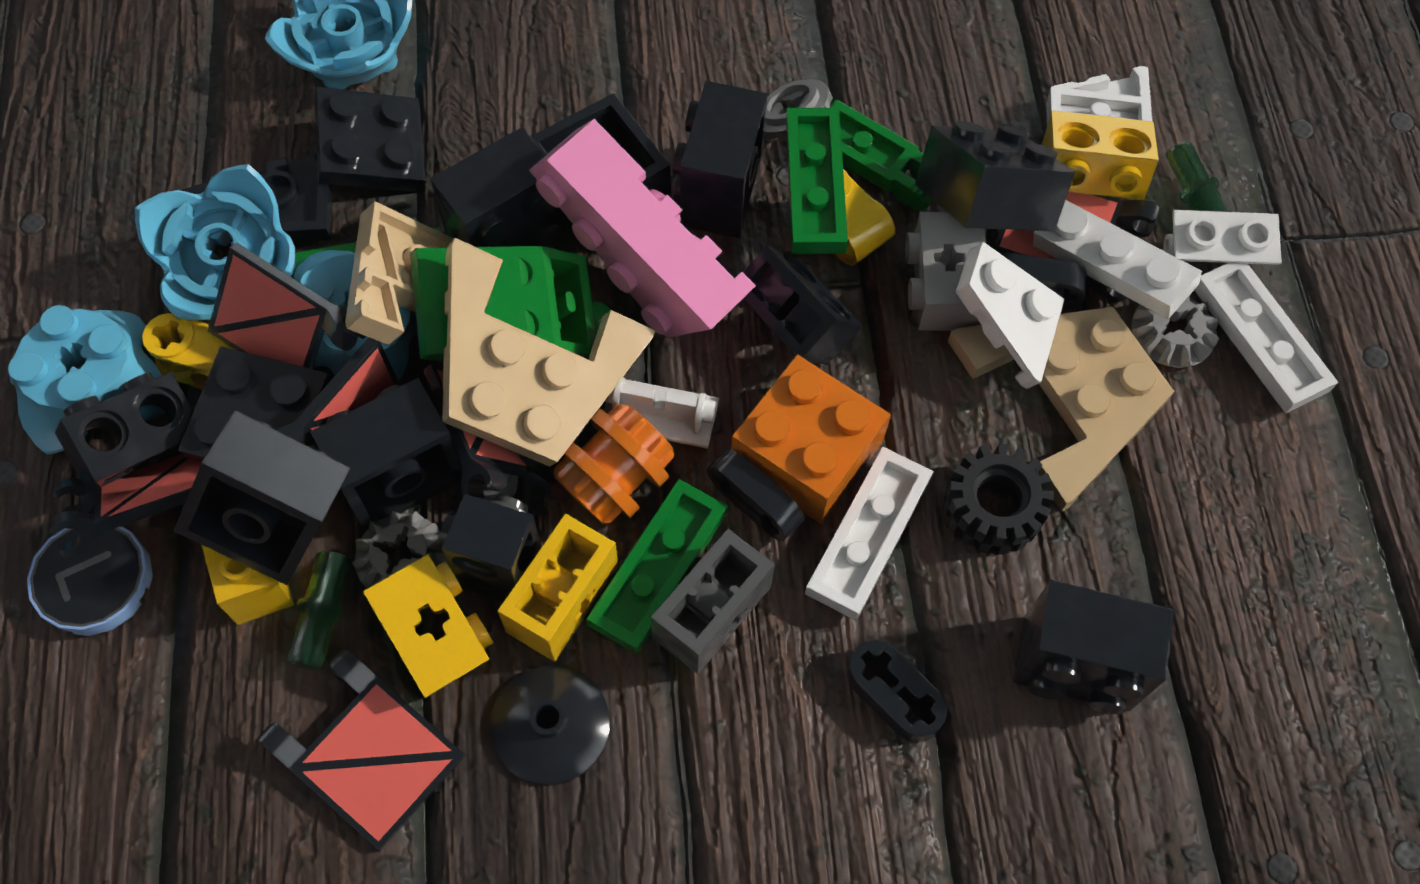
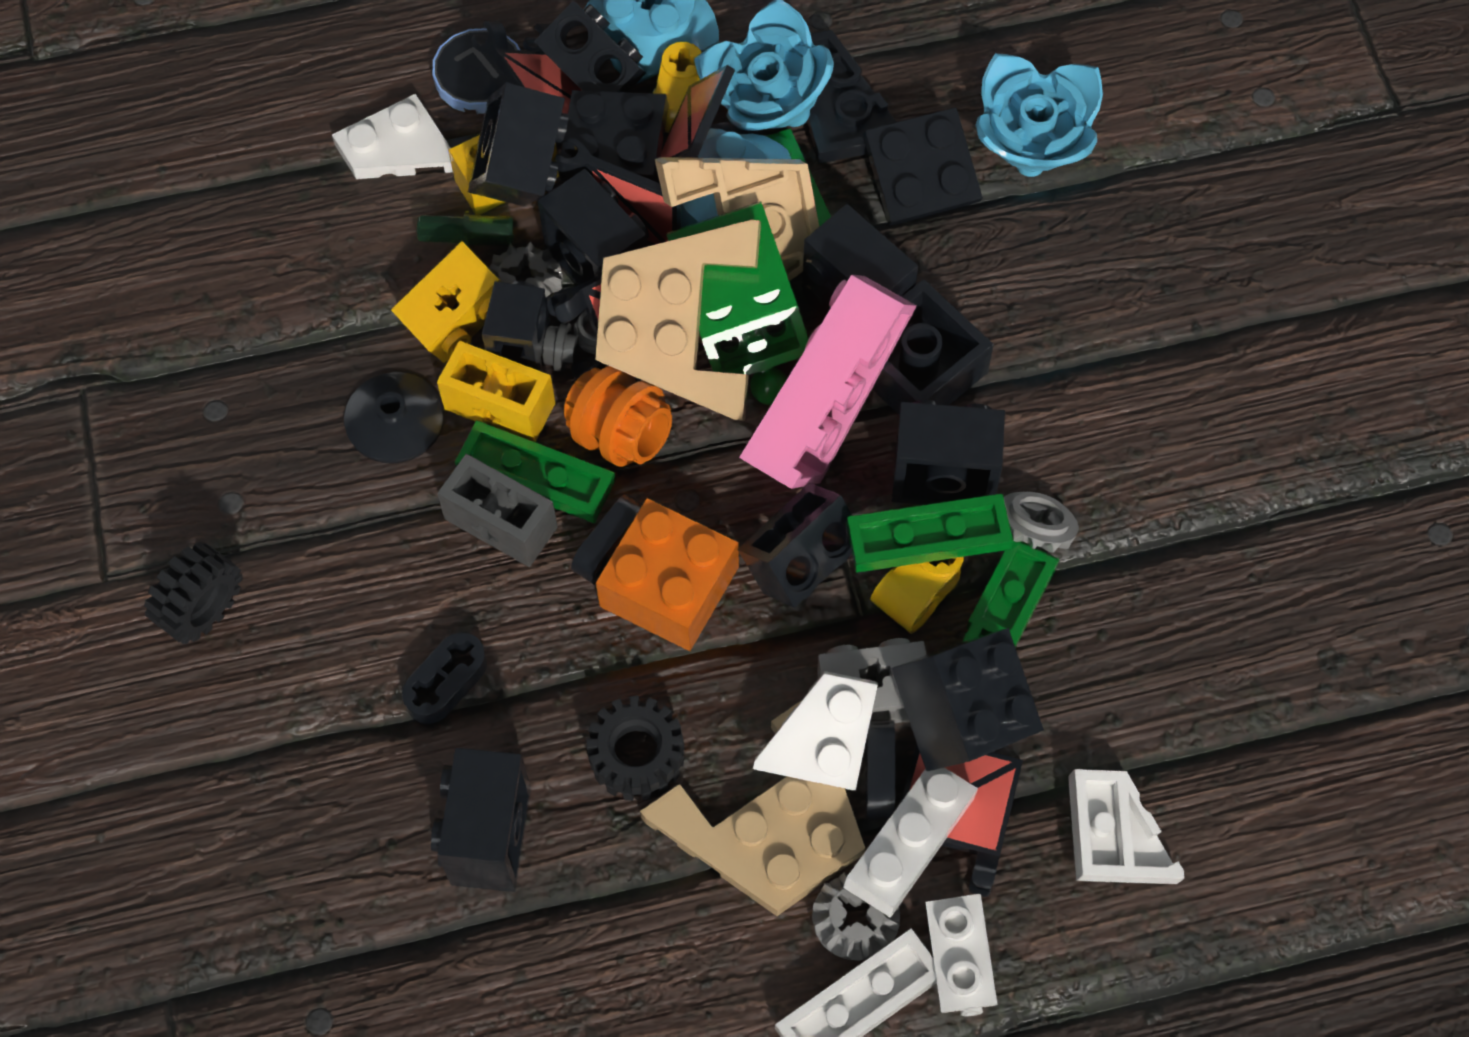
camera: 85 degrees right, 0 degrees up
(163, 687) = (393, 142): none -> white wing
(372, 759) = (353, 293): coral flag -> none
(675, 413) = (687, 454): white hinge -> none
(868, 533) = (588, 639): white plate -> none
(1105, 152) = (1054, 821): yellow brick -> none
(1198, 188) = (1033, 932): clear green axle -> none

